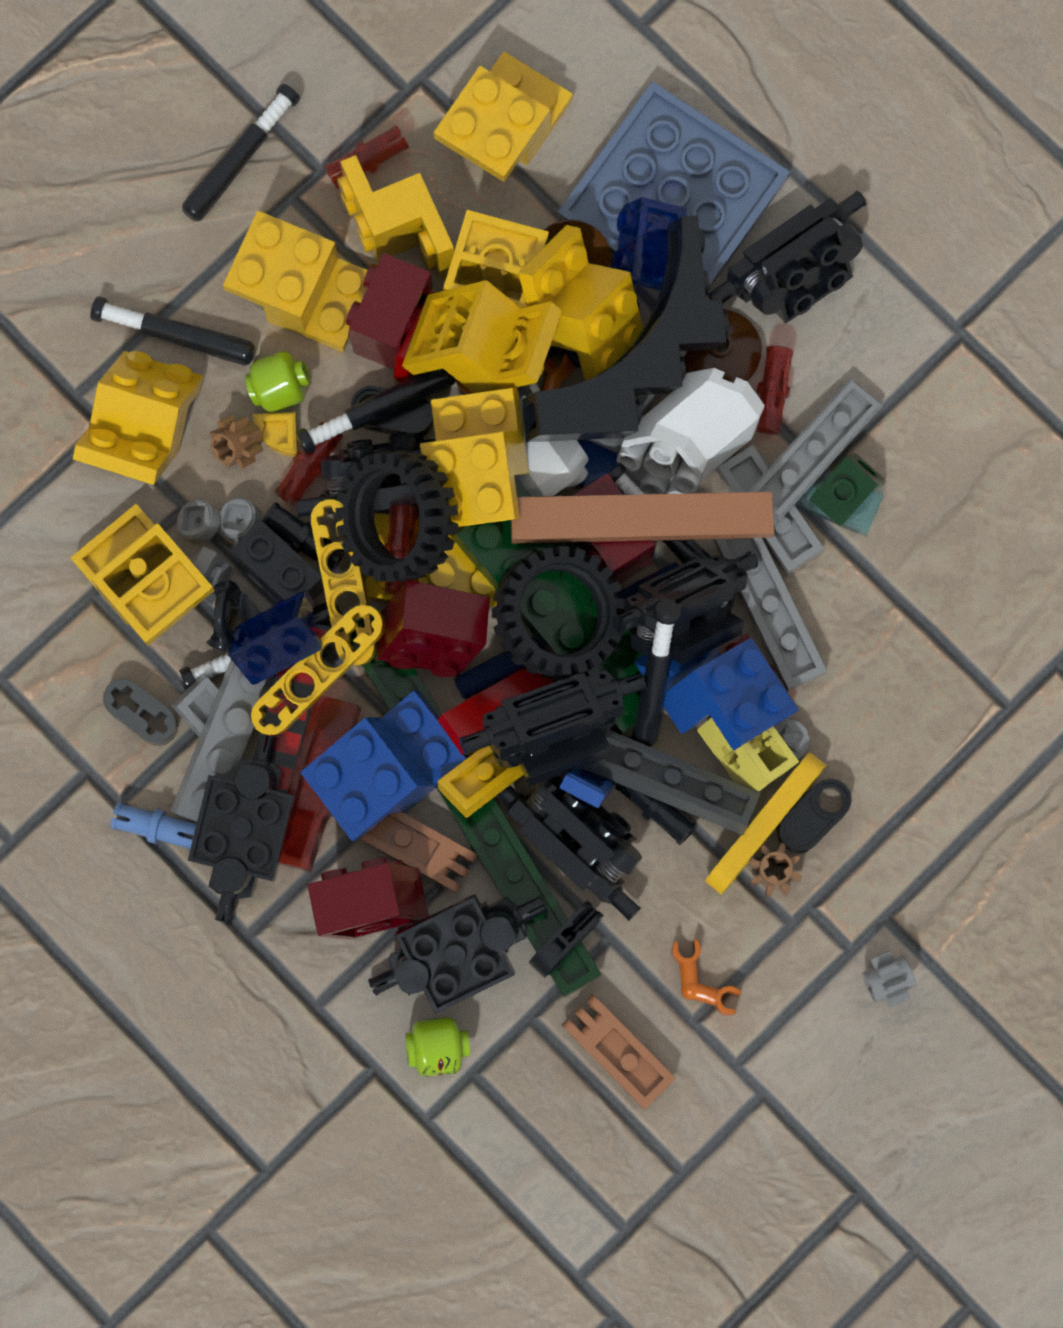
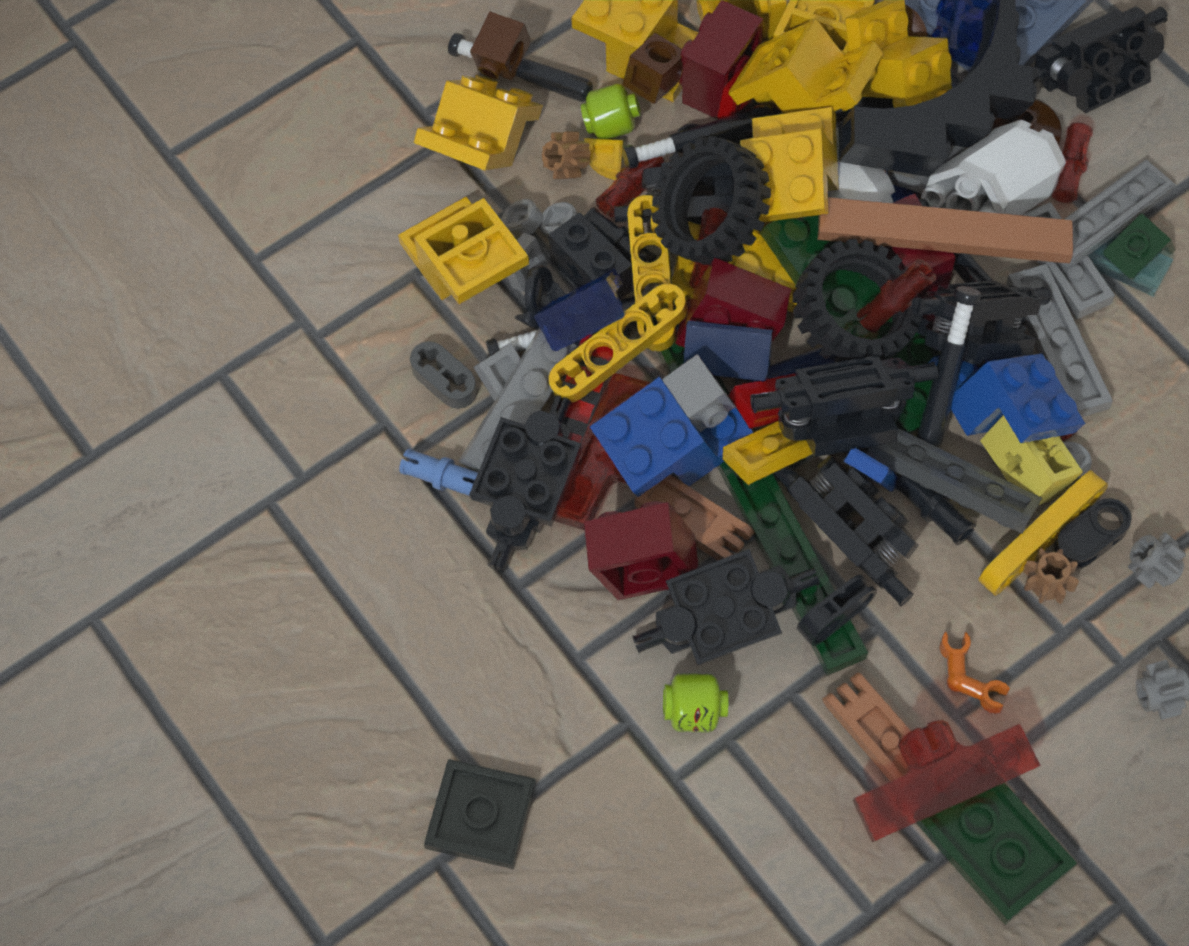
camera: 10 degrees right, 15 degrees down
(148, 321) = (500, 46): none -> reddish brown brick
(241, 1179) = (480, 814): none -> pearl dark grey tile
(317, 348) = (654, 68): none -> reddish brown brick
(407, 728) = (699, 394): none -> light grey brick
(431, 674) = (730, 349): none -> dark blue slope
(597, 604) = (896, 295): none -> clear red pin
(681, 1099) = (942, 775): none -> clear red plate
(735, 1149) = (999, 850): none -> dark green plate
(877, 843) = (1157, 560): none -> light grey gear

